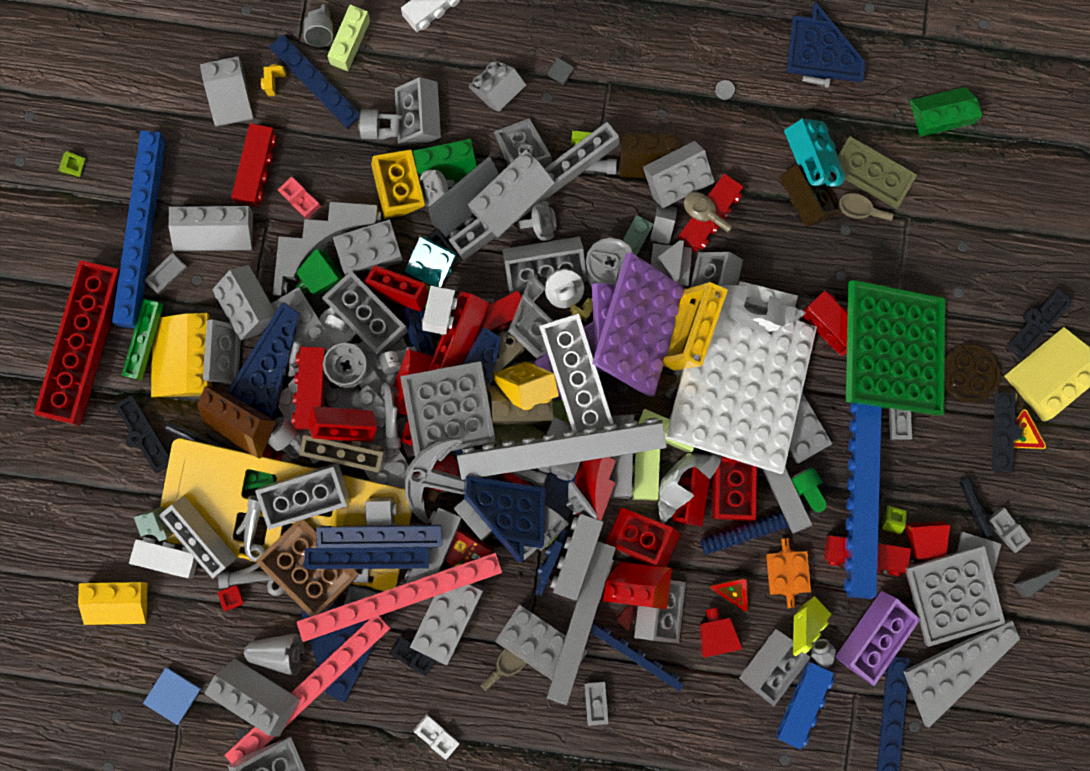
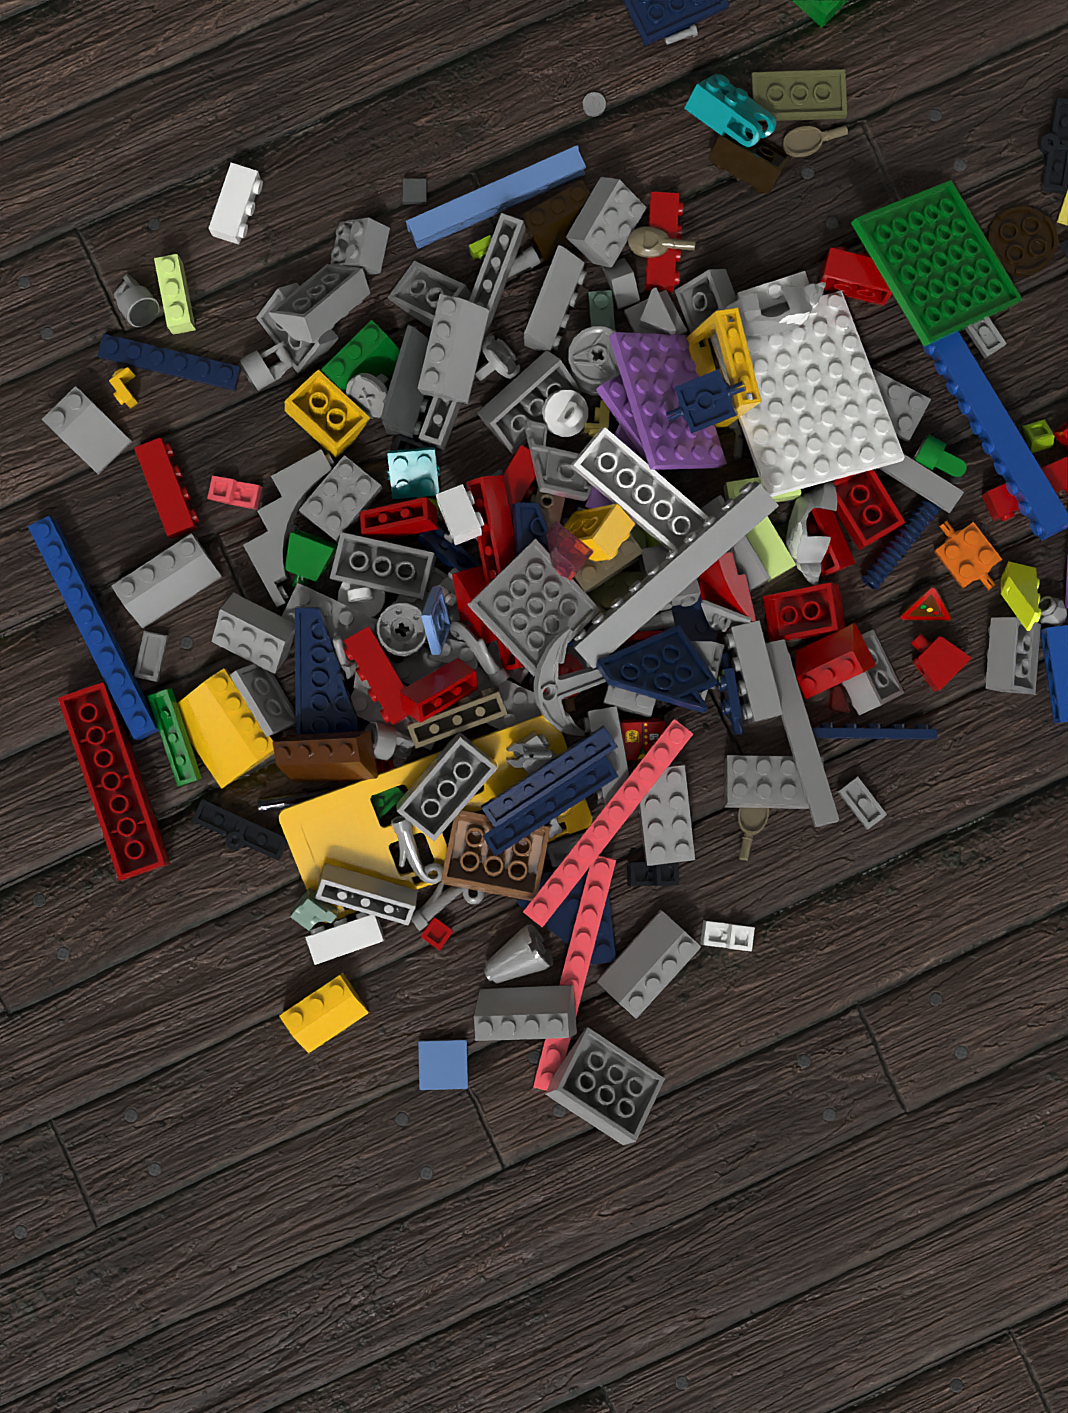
camera: 30 degrees left, 5 degrees up
(365, 719) = (648, 964): none -> light grey slope
(372, 509) = (526, 754): none -> dark grey bar
(373, 373) = (436, 620): none -> medium blue tile
(443, 105) = (321, 302): none -> light grey slope
(496, 385) = (566, 551): none -> clear pink slope
(606, 206) = (554, 301): none -> light grey slope
(614, 110) = (496, 197): none -> medium blue tile
(662, 340) = (706, 401): none -> dark blue plate

